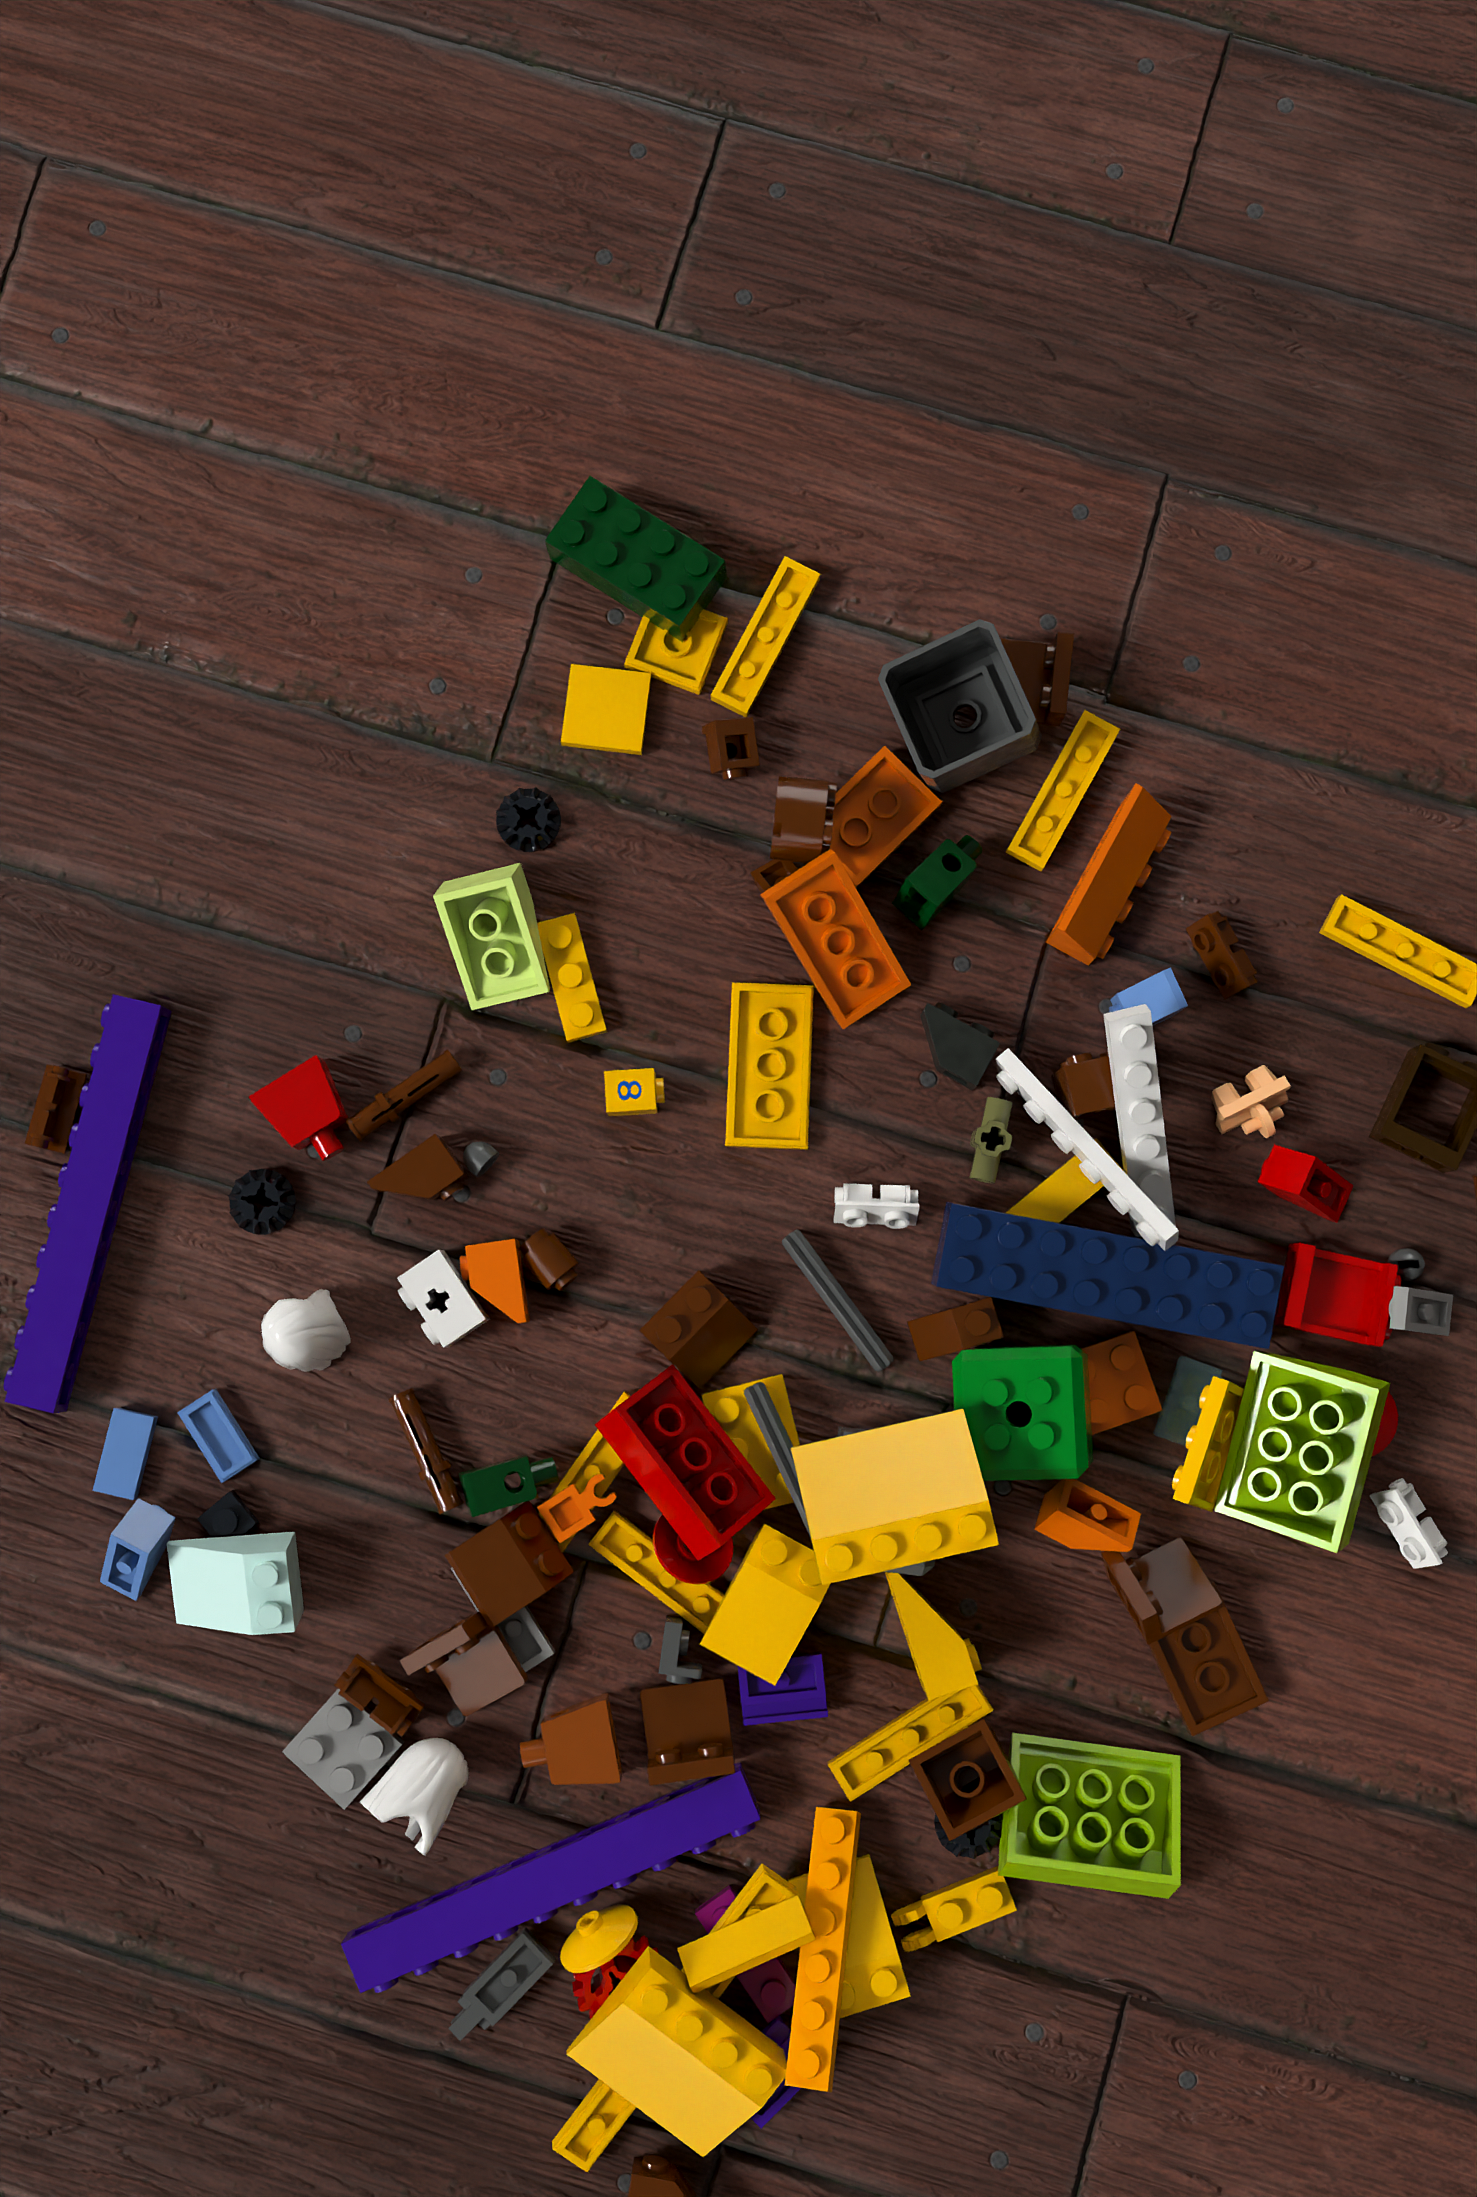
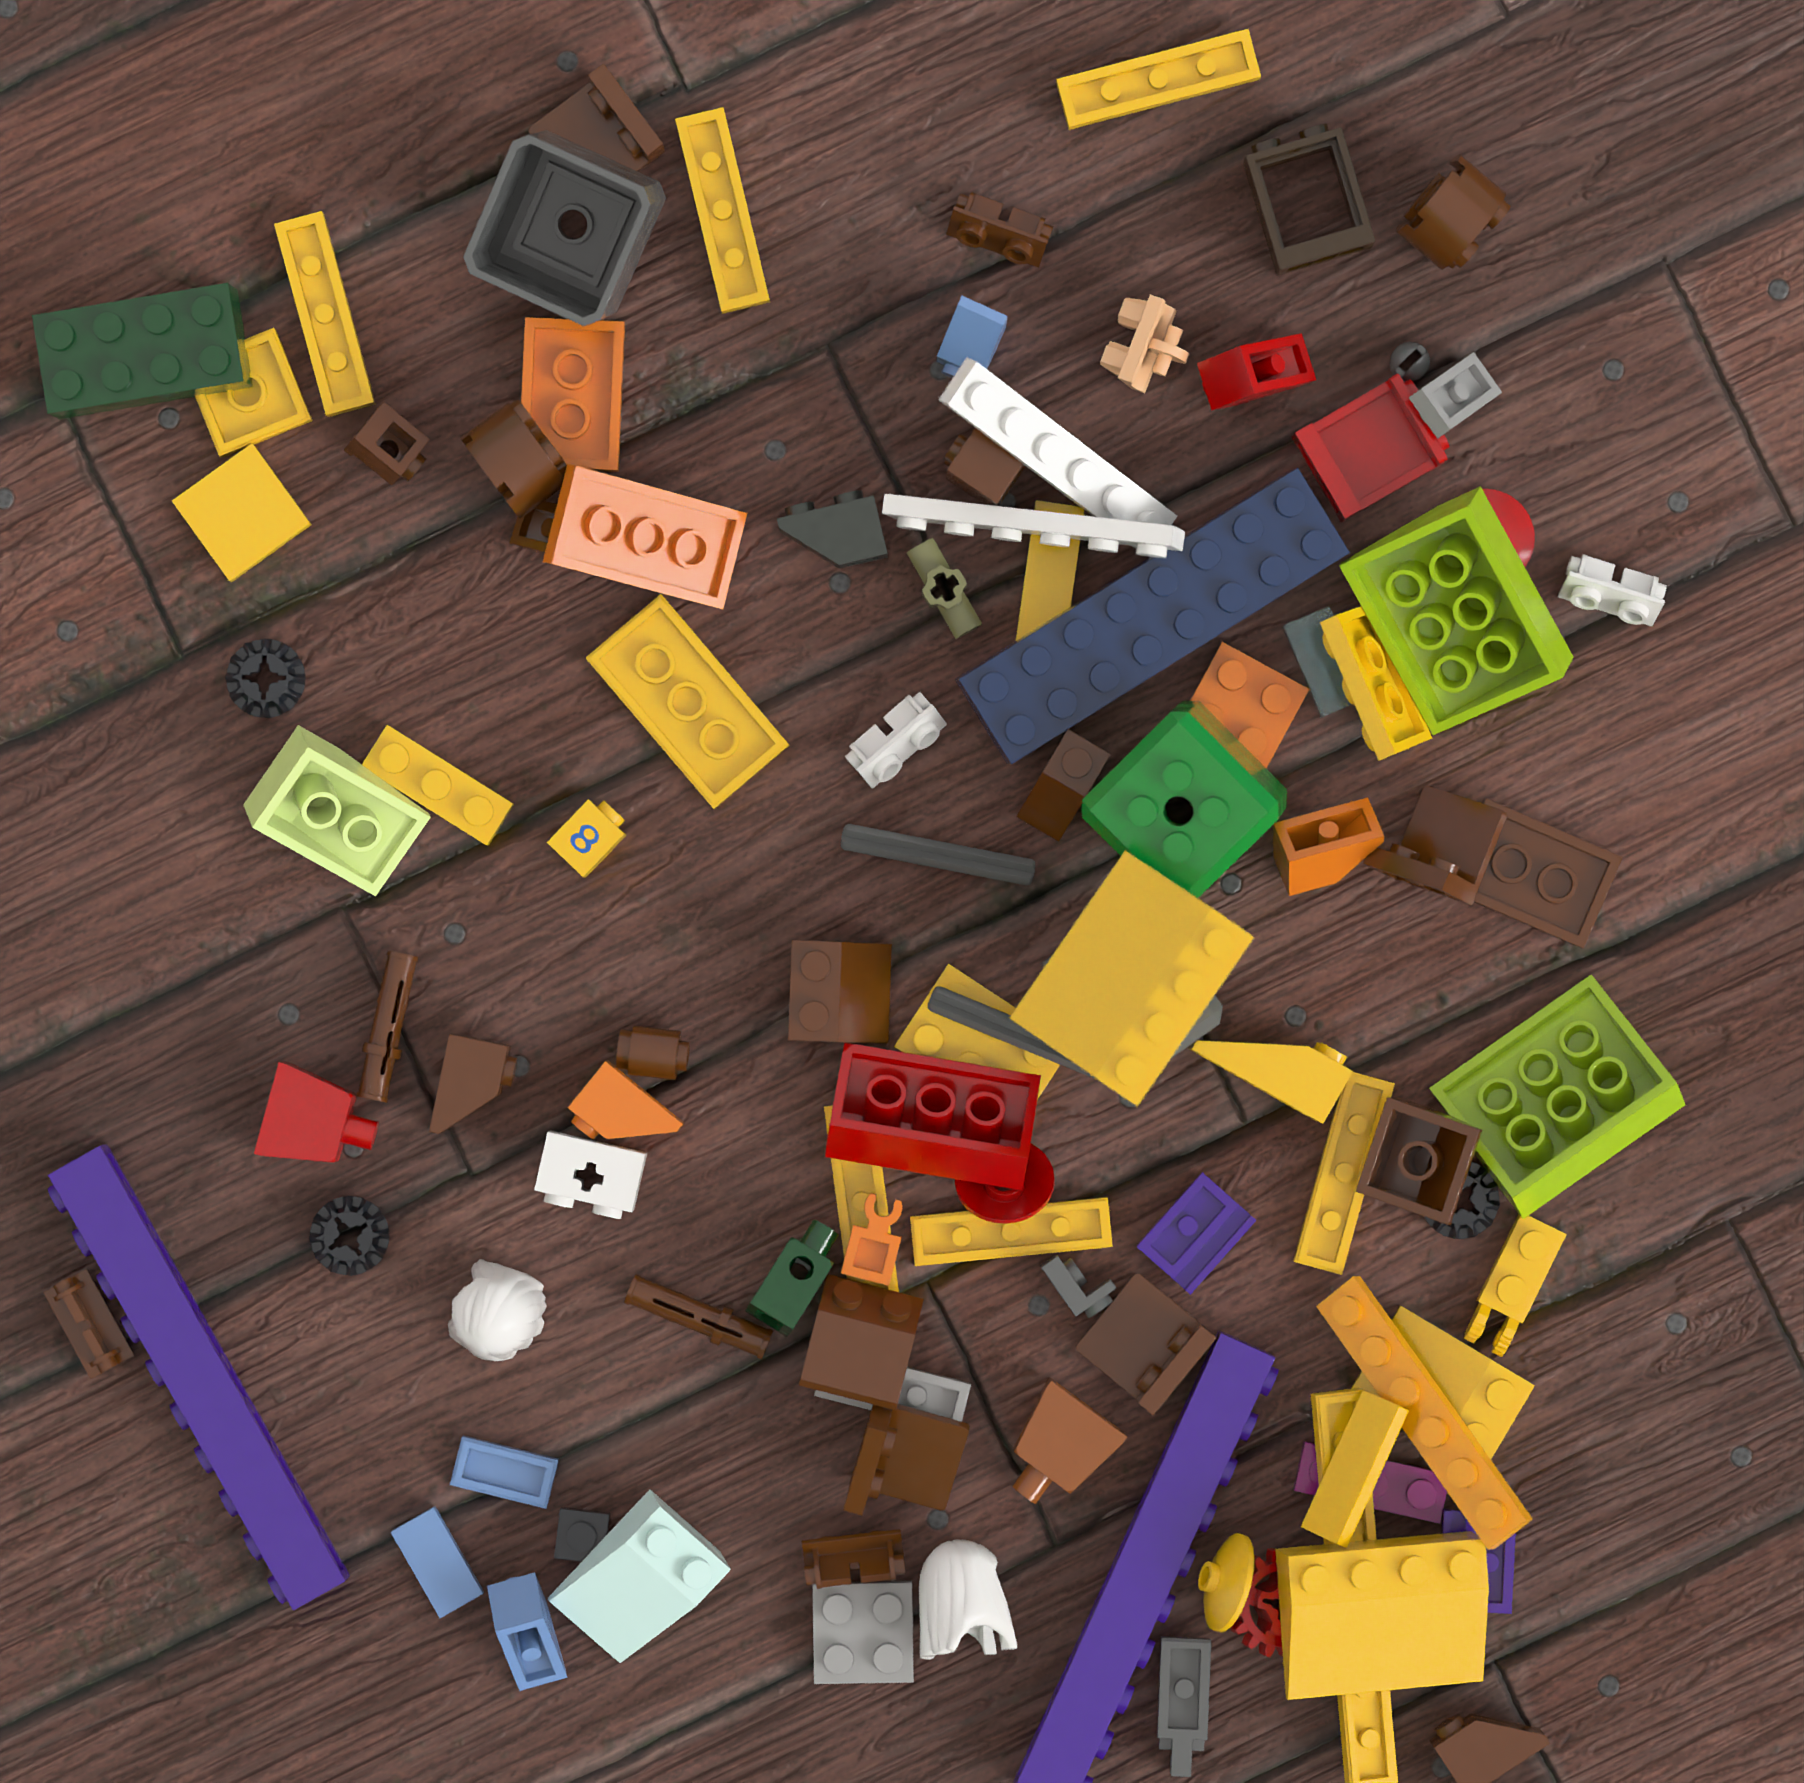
camera: 40 degrees left, 5 degrees up
(479, 1157) = (506, 1019): dark grey hinge -> none
(767, 1605) = (1117, 1173): yellow slope -> none
(937, 880) = (685, 410): dark green torso -> none
(1110, 877) = (837, 253): orange slope -> none

